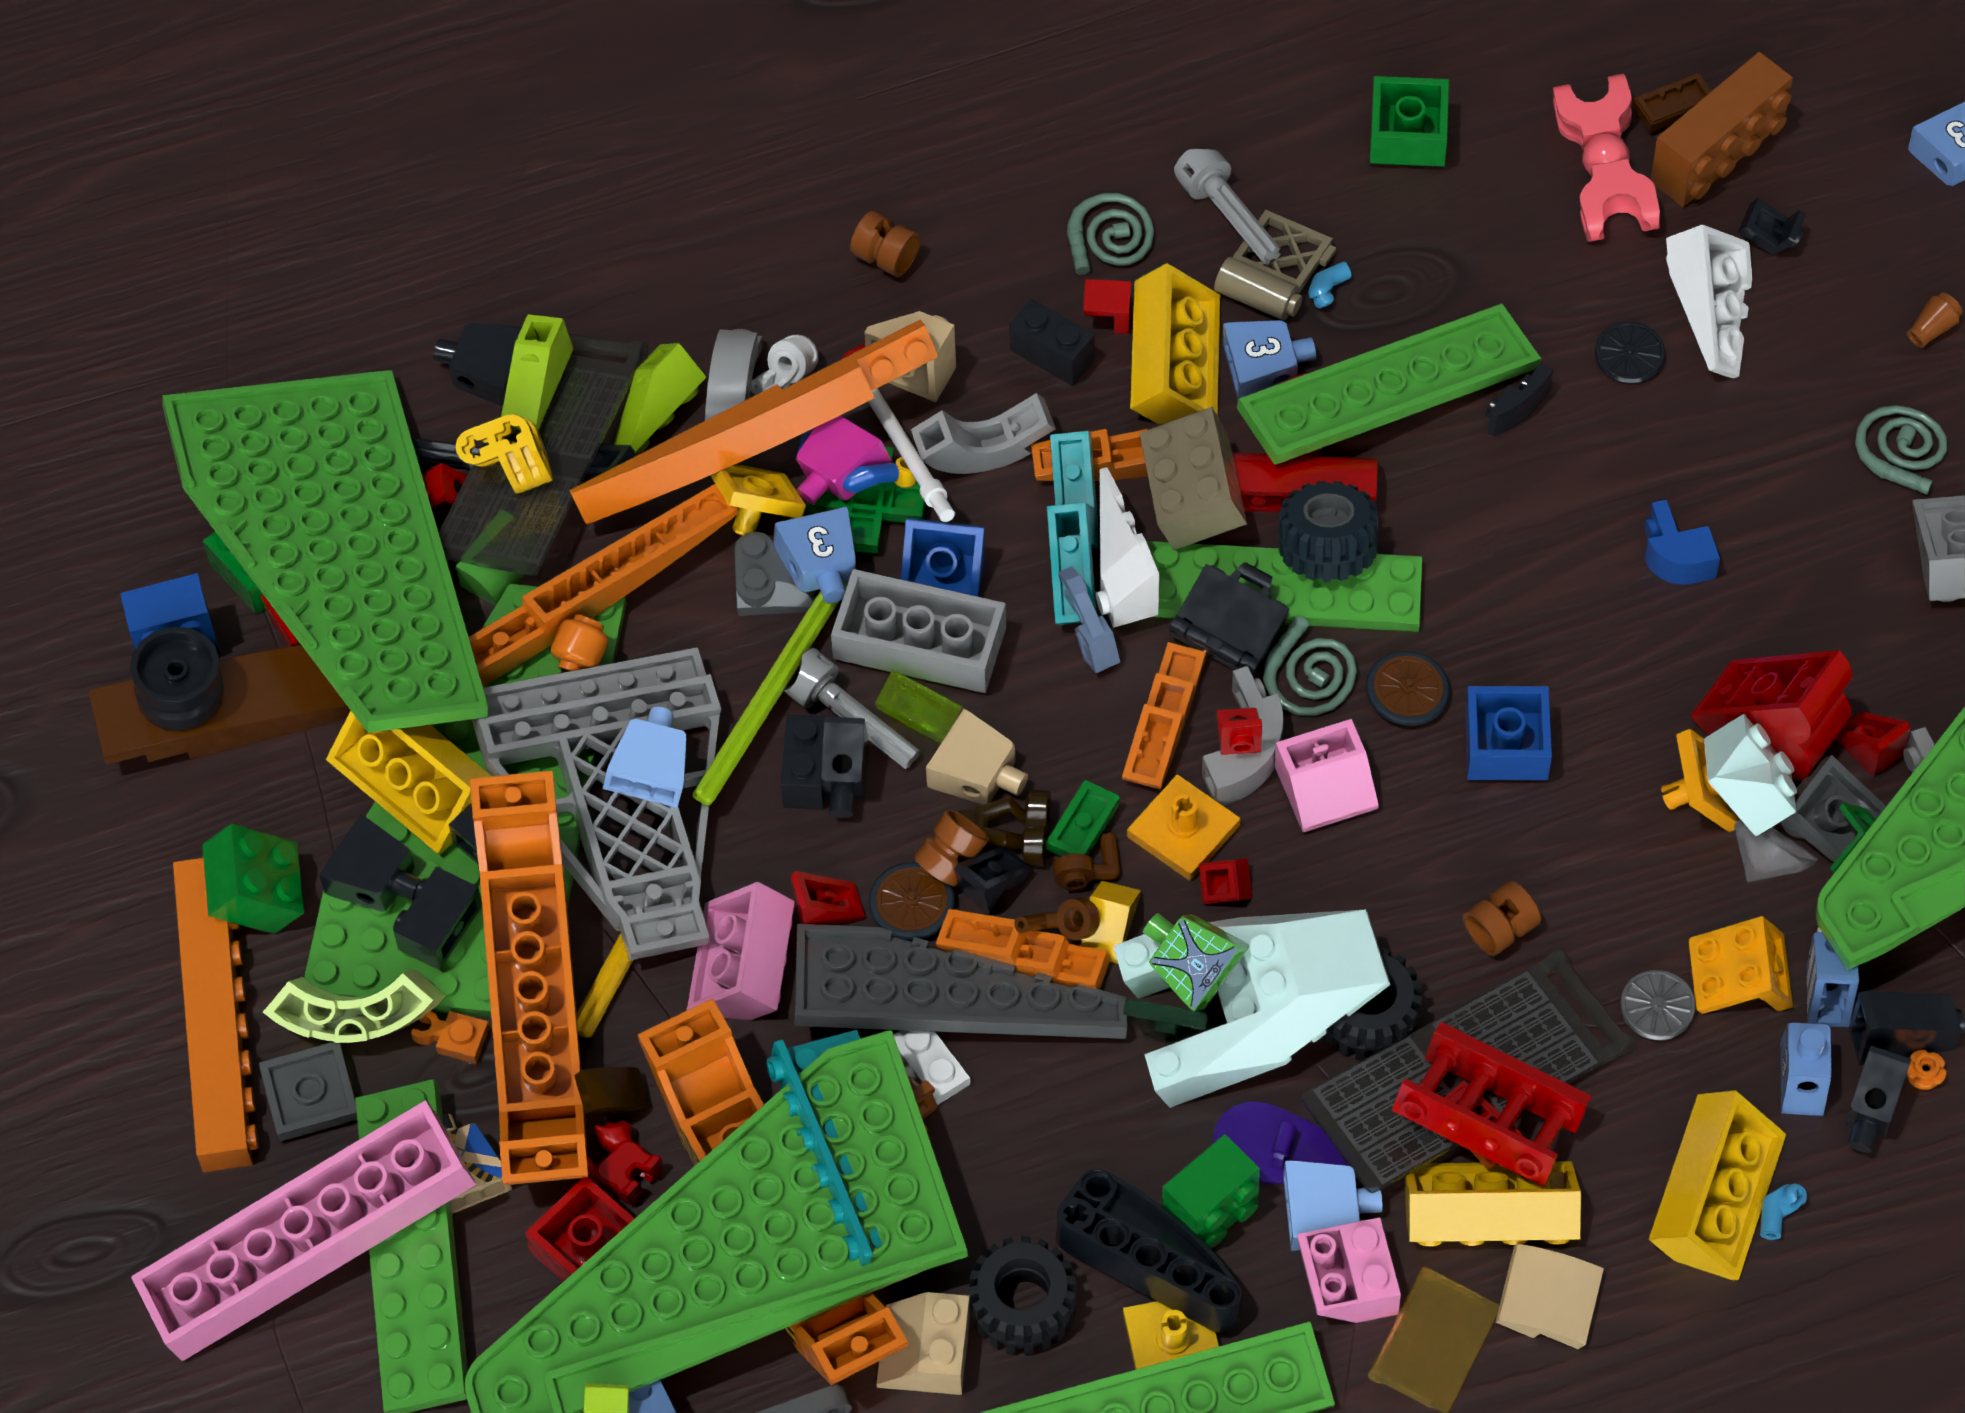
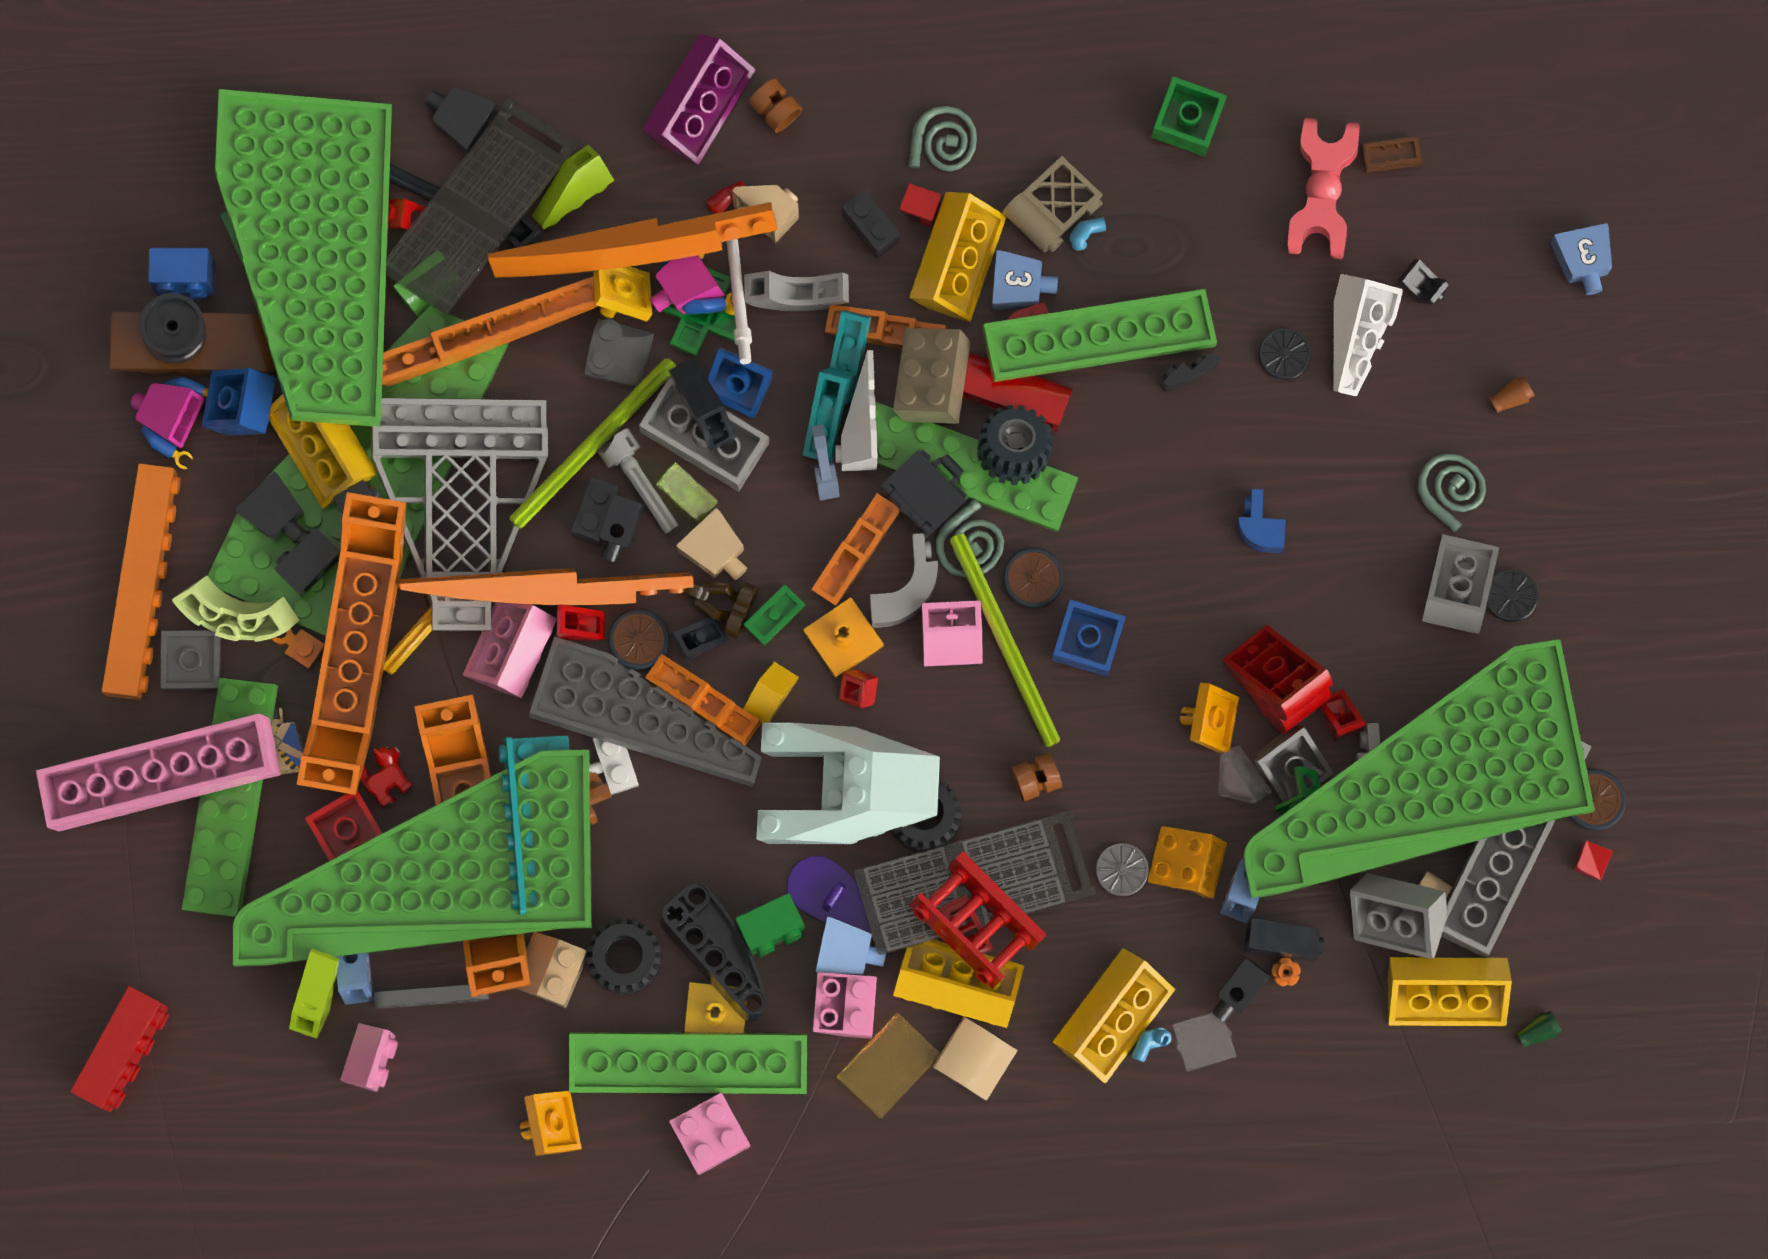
camera: 10 degrees right, 20 degrees up
(200, 791) = (169, 414): none -> dark pink torso
(252, 879) = (189, 494): green brick -> none
(288, 752) = (238, 402): none -> blue brick
(522, 461) = (457, 215): yellow piece -> none
(536, 367) = (489, 148): lime slope -> none
(579, 644) = (462, 378): orange head -> none
(612, 1090) = (392, 727): dark brown slope -> none
(649, 760) = (484, 489): light blue torso -> none
(731, 369) = (632, 186): light grey arch -> none
(764, 860) = (548, 587): none -> orange slope
(784, 262) = (699, 98): none -> magenta slope
(788, 363) = (676, 187): white piece -> none
(818, 552) = (650, 354): medium blue torso -> none
(908, 579) = (702, 403): none -> black slope
(954, 842) = (675, 612): dark orange wheel -> none
(1066, 919) = (743, 693): reddish brown plate -> none
(1078, 870) = (757, 652): reddish brown plate -> none
(1167, 1018) = (783, 785): clear green plate -> none
(1193, 956) = (808, 757): torso -> none
(1210, 180) = (1026, 118): light grey piece -> none
(1239, 735) = (897, 595): red bracket -> none
(1401, 771) = (1005, 640): none -> lime axle
(1721, 130) = (1413, 195): dark orange brick -> none
(1750, 774) = (1240, 728): light aqua slope -> none
(1805, 1058) = (1202, 950): medium blue torso -> none
(1850, 1189) = (1203, 1041): none -> clear piece

